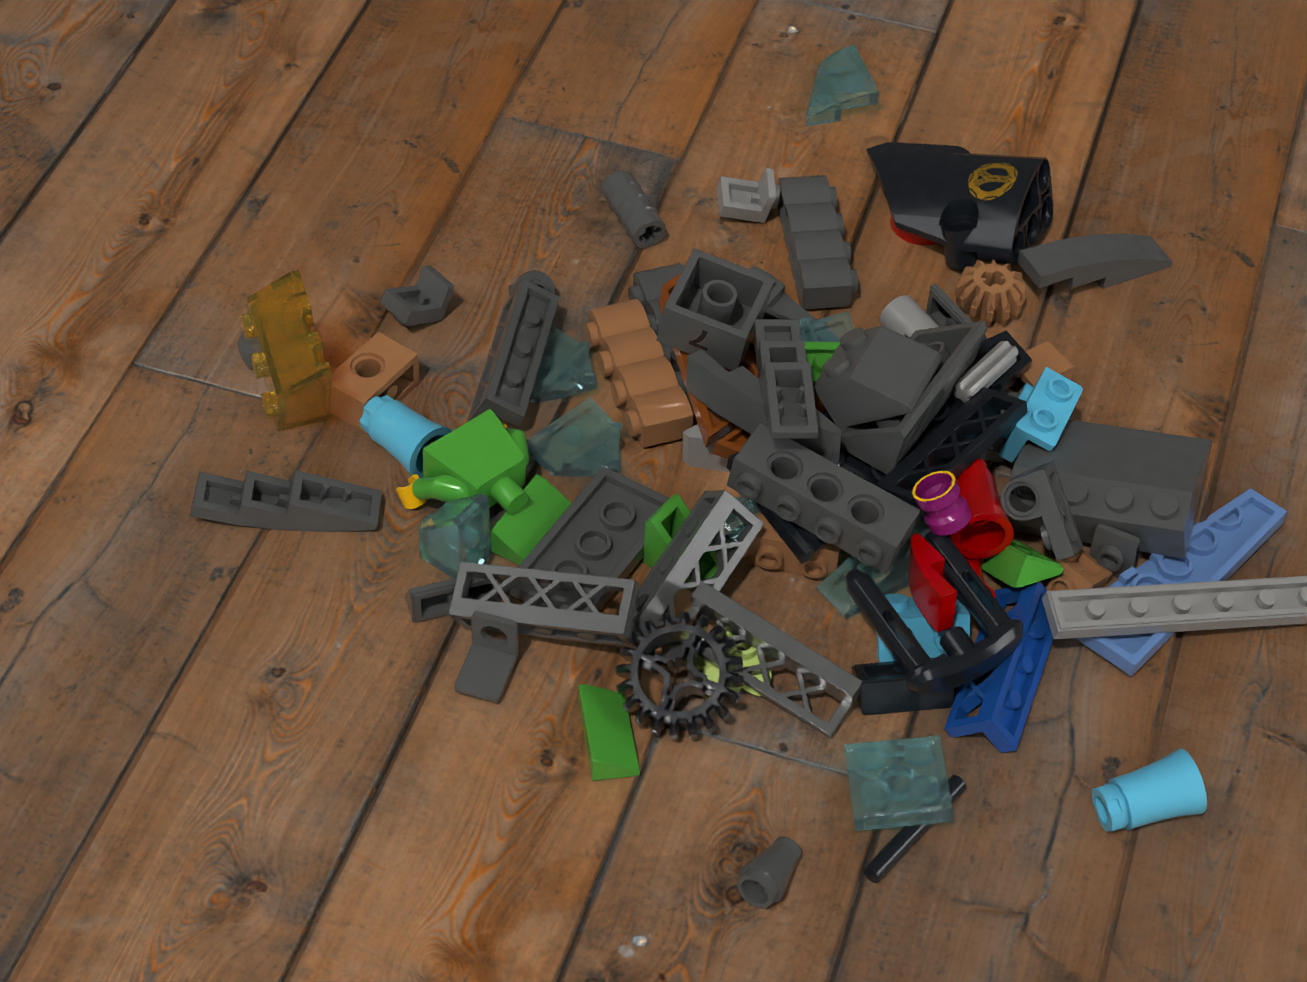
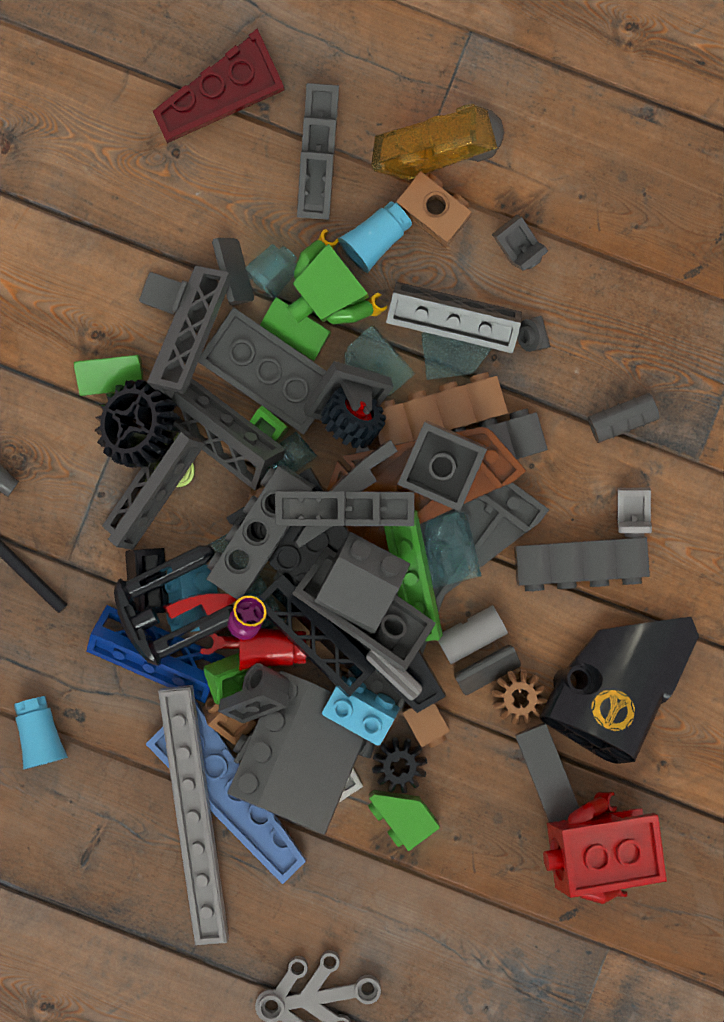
camera: 100 degrees right, 40 degrees up
(191, 608) = (230, 85): none -> dark red wing
(640, 429) = (350, 403): none -> plate
(898, 783) = (57, 566): clear light blue plate -> none
(1105, 398) = (394, 755): none -> black gear
(1162, 195) = (605, 852): none -> red torso
(1168, 392) = (406, 815): none -> bright green slope

